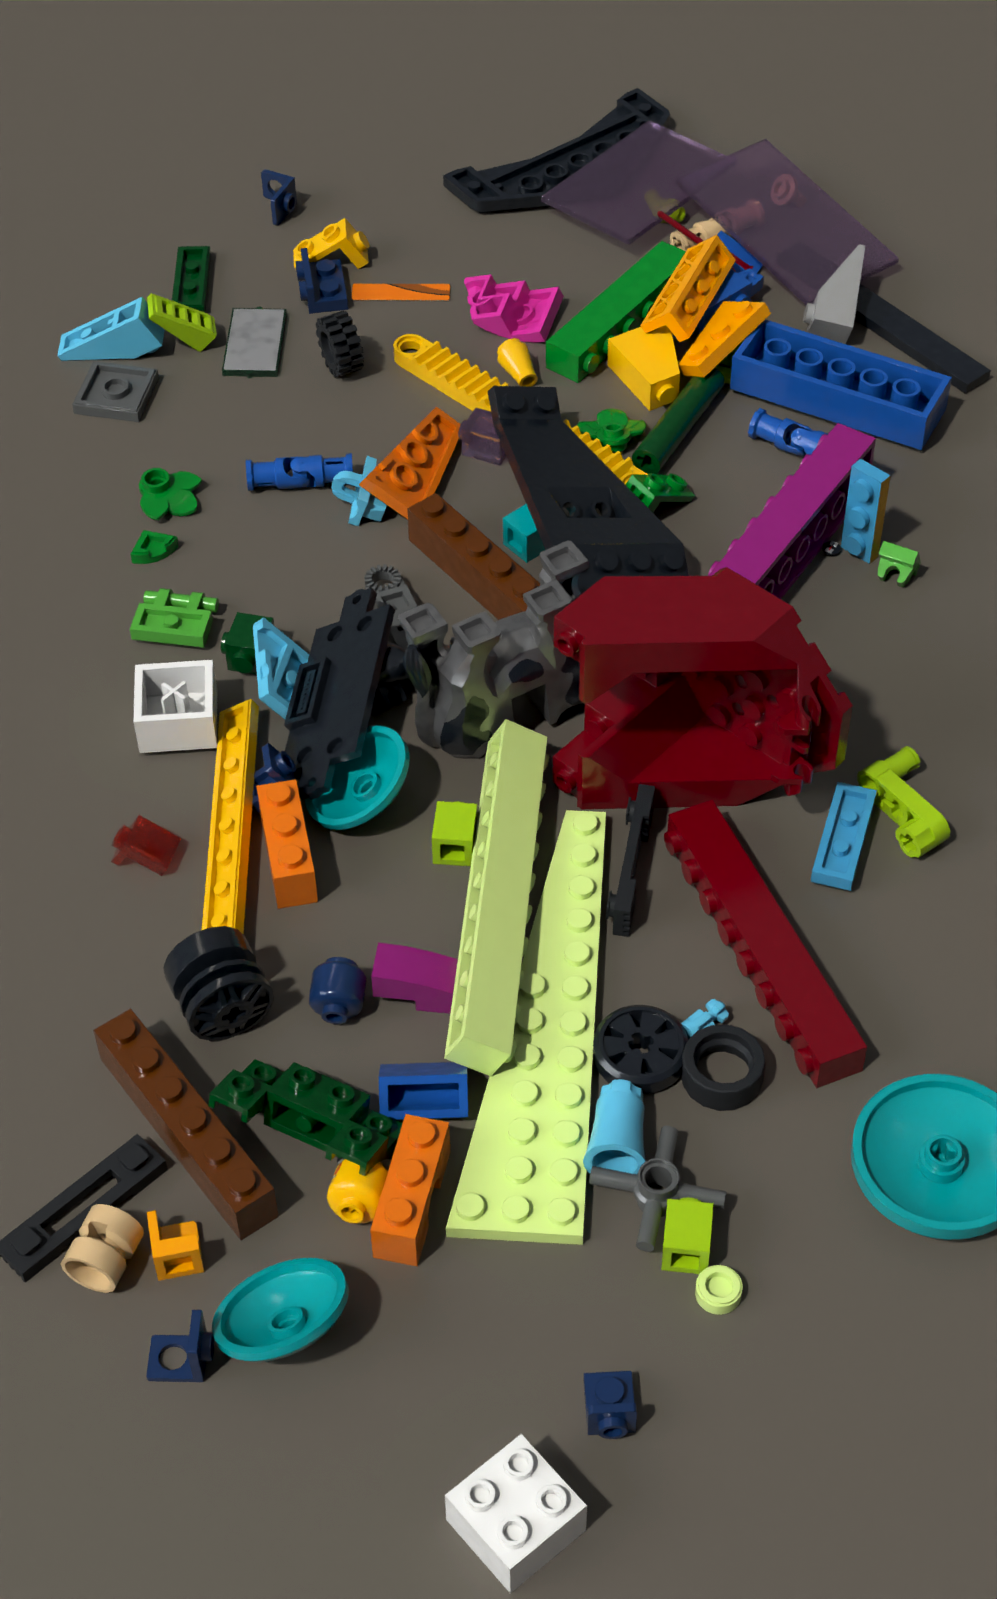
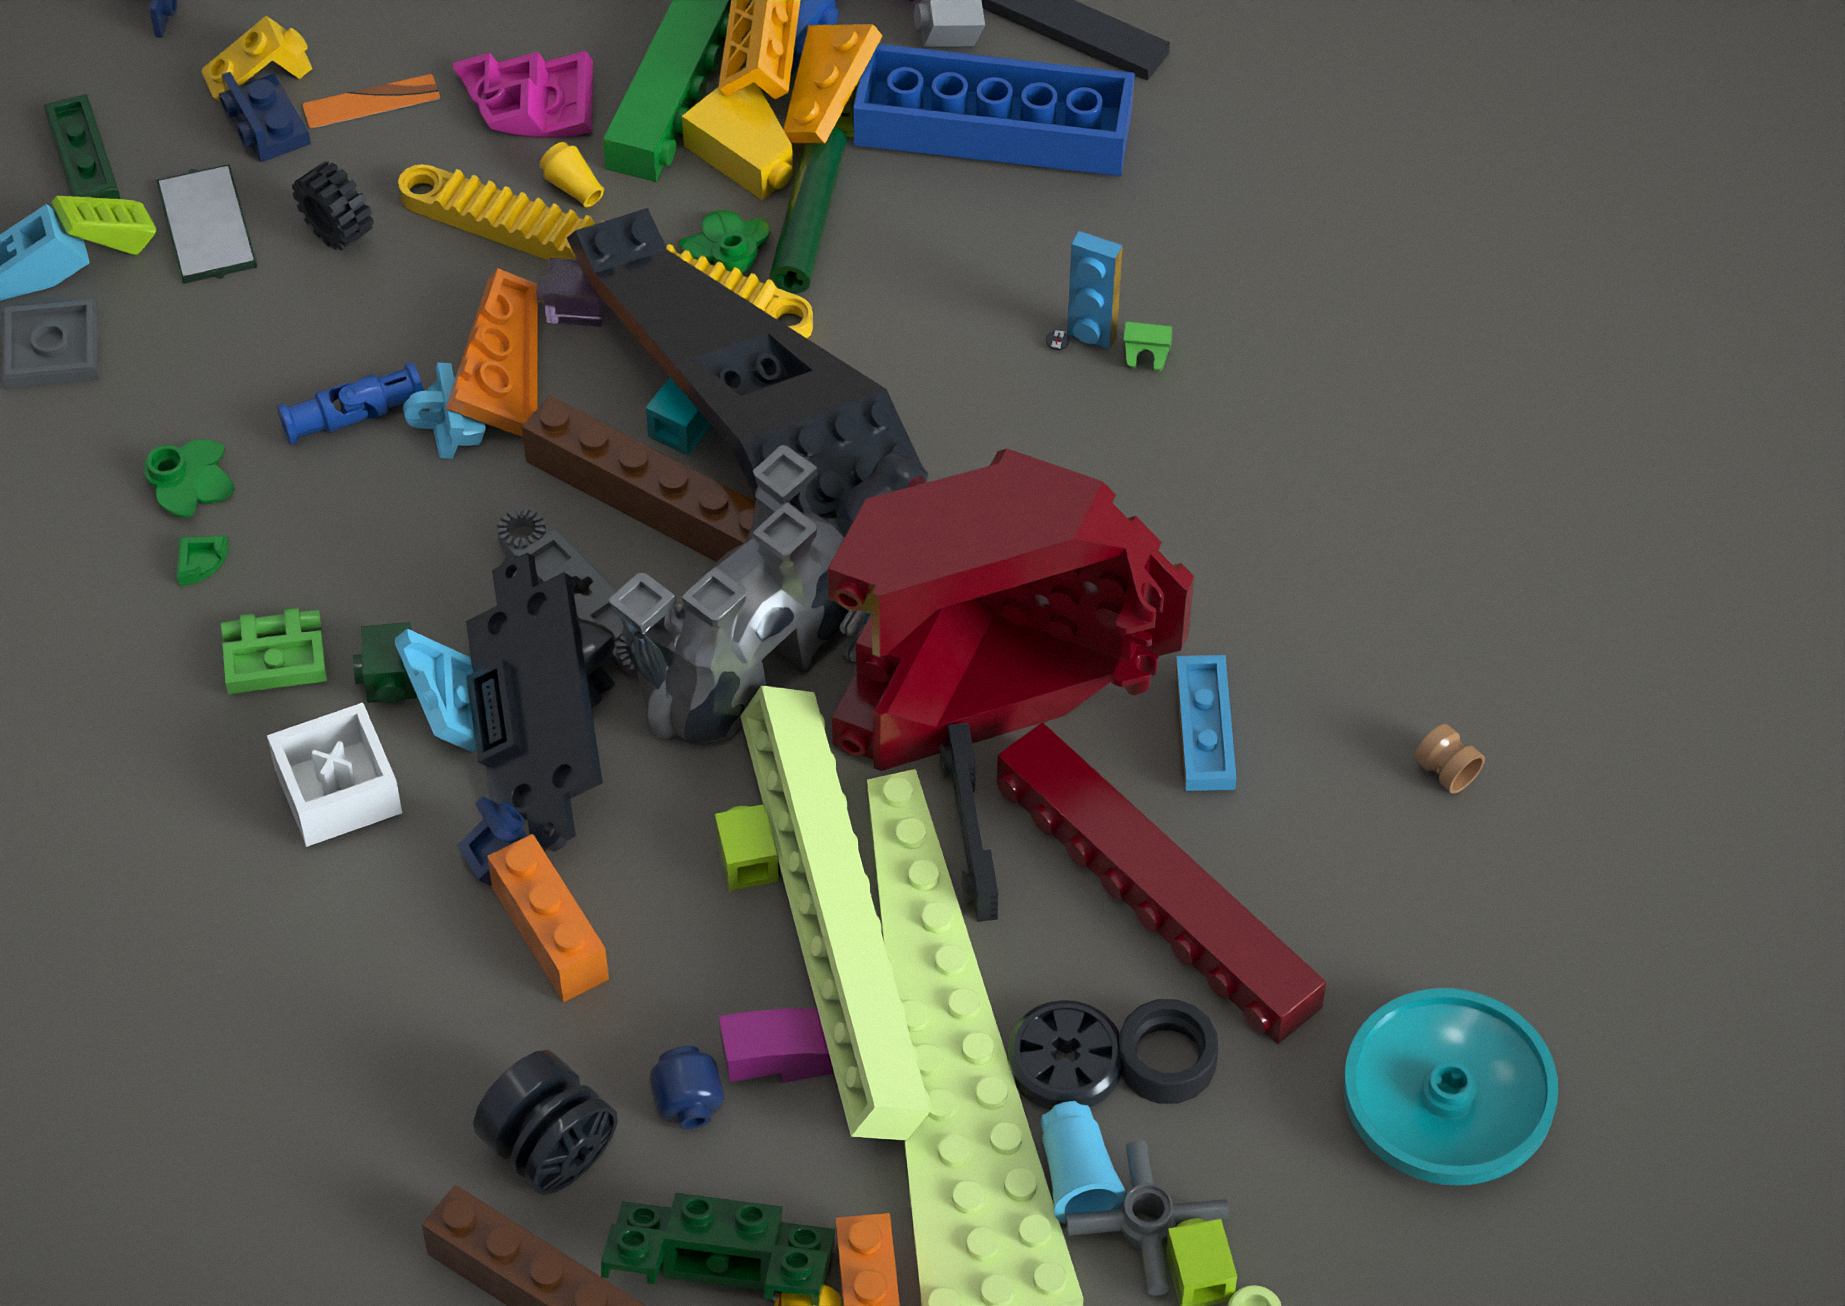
camera: 20 degrees left, 5 degrees up
(146, 845) = (369, 967): clear red bracket -> none
(231, 817) = (464, 909): yellow tile -> none
(364, 784) = (632, 788): teal dish -> none
(423, 1090) = (835, 1180): blue brick -> none
(659, 488) = (823, 315): green bracket -> none
(701, 1019) = (1124, 1002): medium azure piece -> none
(780, 432) = (975, 200): blue piece -> none
(801, 515) = (1008, 331): magenta brick -> none
(919, 822) = (1290, 683): lime beam -> none

